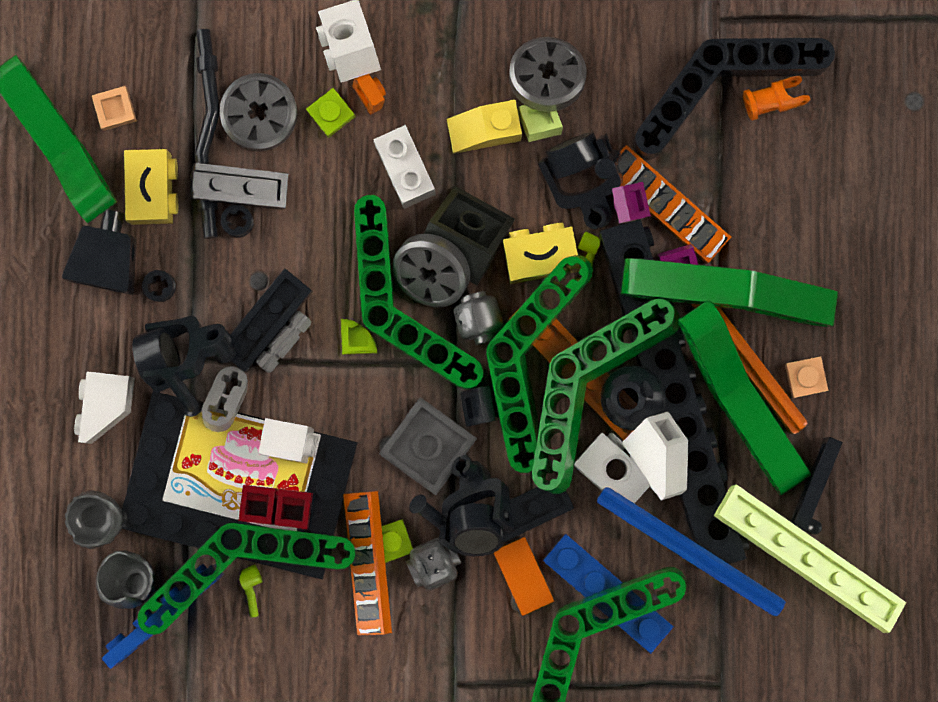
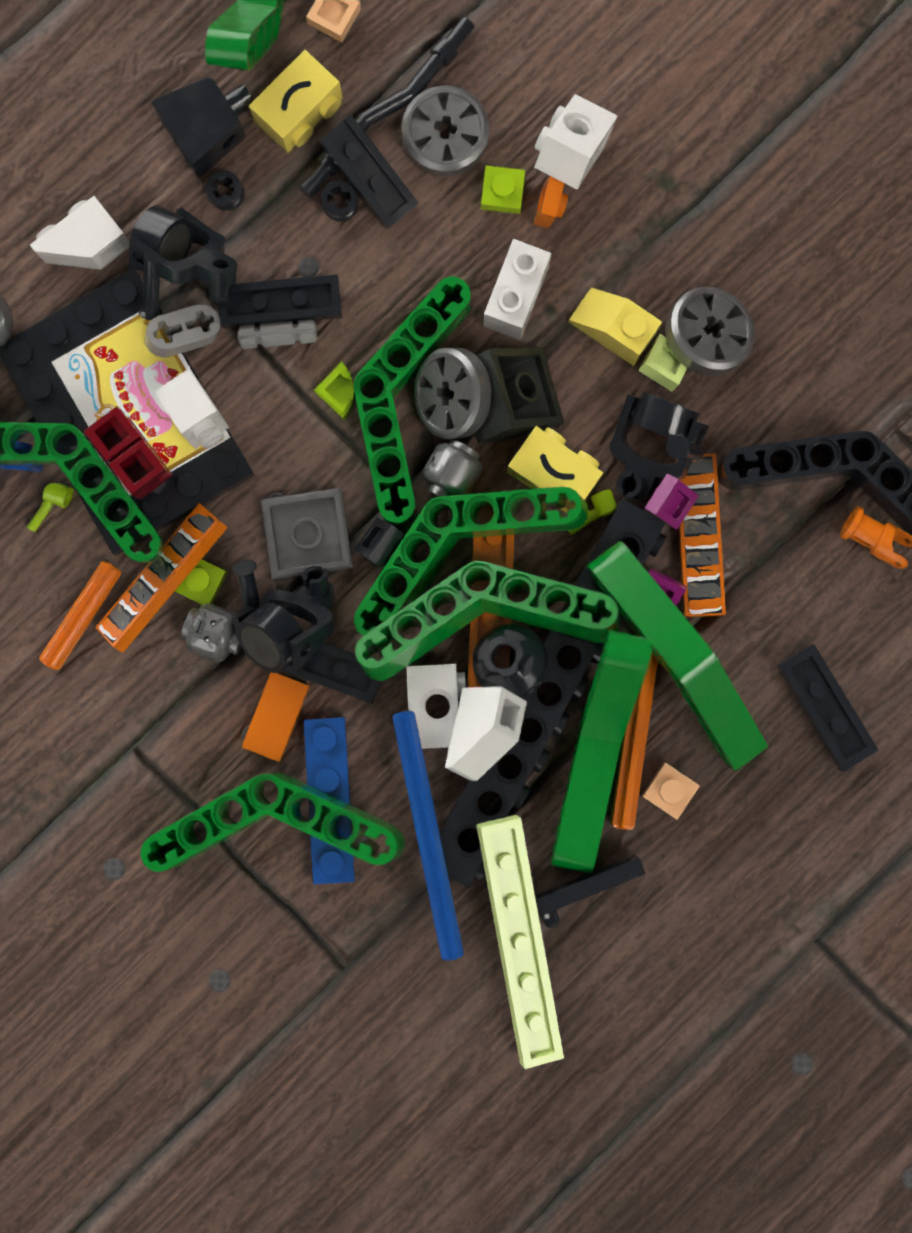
camera: 45 degrees right, 0 degrees up
(340, 637) = (80, 615): none -> orange axle
(848, 231) = (827, 708): none -> black plate

